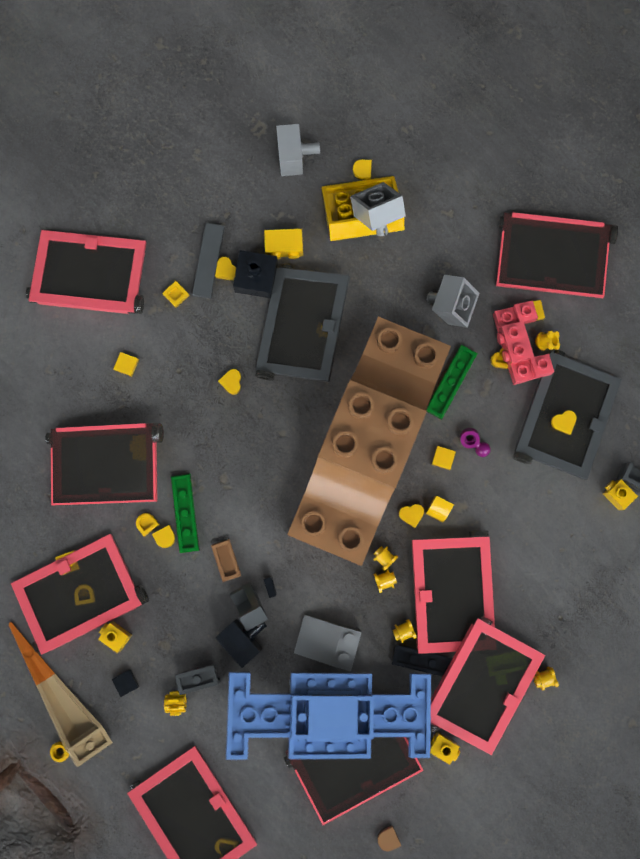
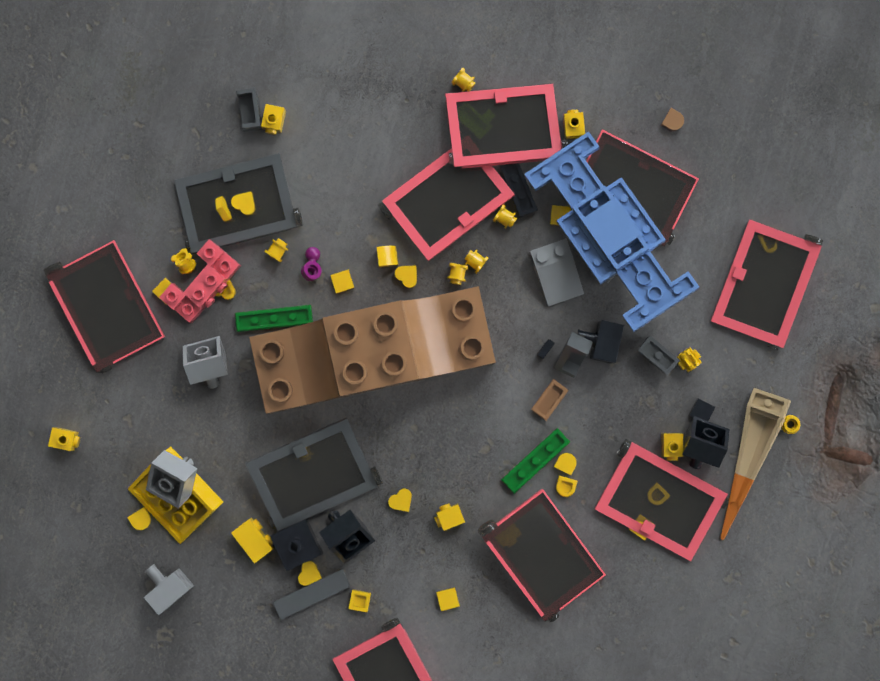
camera: 125 degrees left, 5 degrees up
(95, 666) = (705, 443): none -> black brick
(190, 410) = (449, 516): none -> yellow brick
(234, 316) = (346, 535): none -> black brick
(377, 679) = (557, 212): none -> yellow tile
(468, 152) = (64, 439): none -> yellow brick
(506, 422) = (277, 249): none -> yellow brick
(571, 400) = (222, 209): none -> yellow tile

